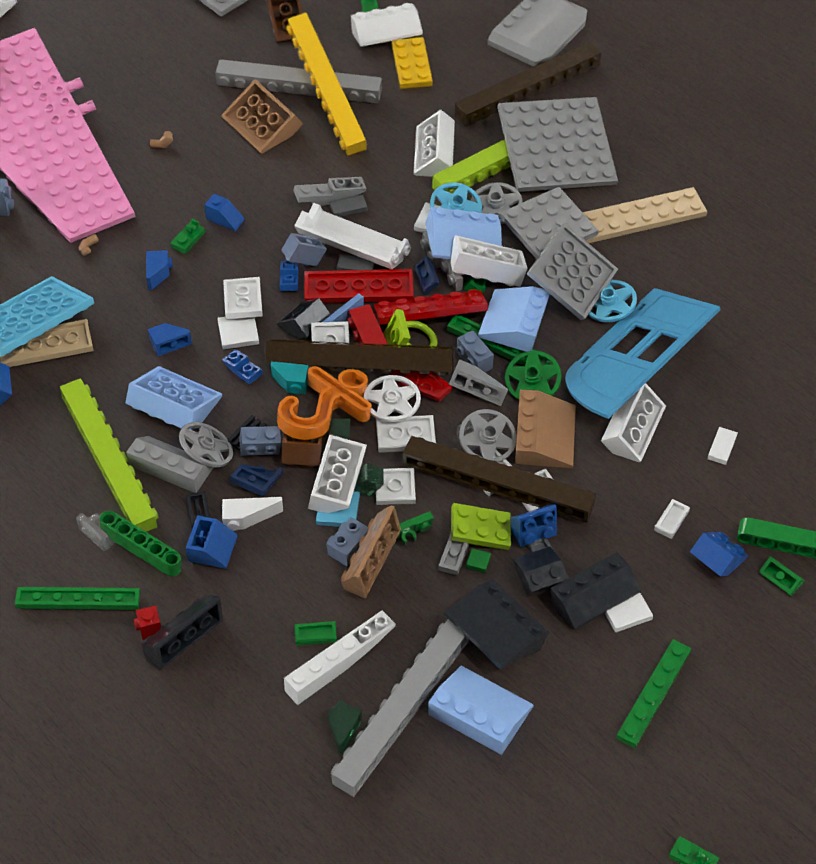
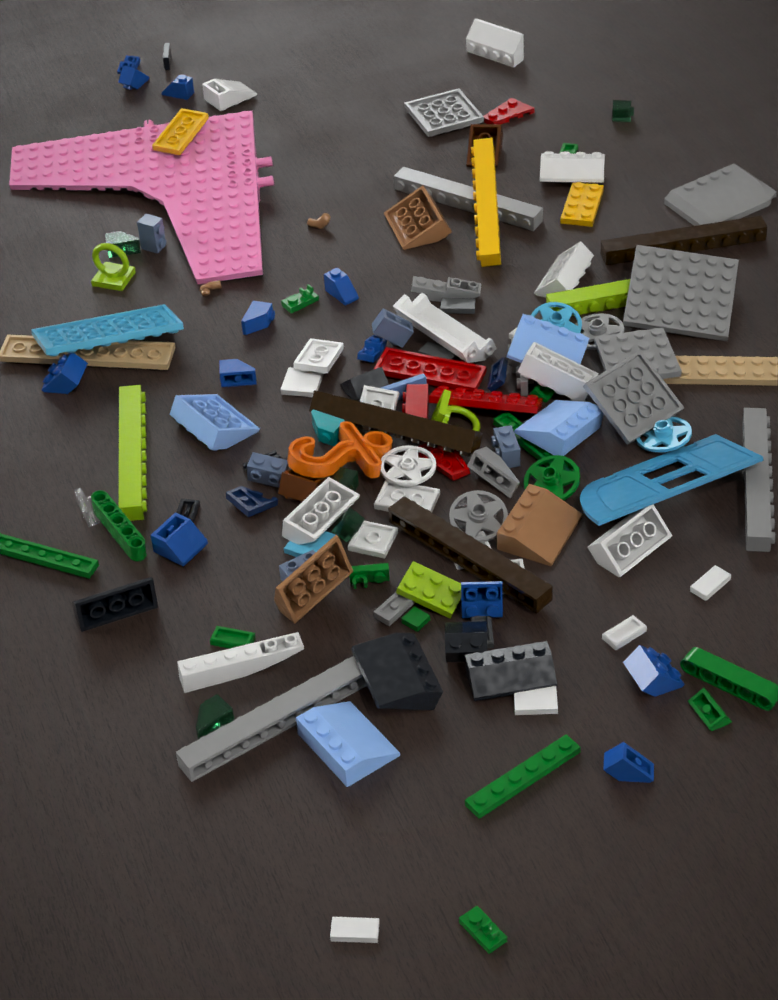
camera: 25 degrees right, 10 degrees down
(147, 621) = (88, 585): red brick -> none
(167, 463) = (180, 470): light grey slope -> none
(205, 444) = (217, 463): light grey wheel -> none
(240, 365) = (289, 410): blue slope -> none
(245, 512) = (226, 525): white slope -> none
(717, 331) = (757, 482): none -> light grey brick
(741, 654) = (628, 765): none -> blue slope

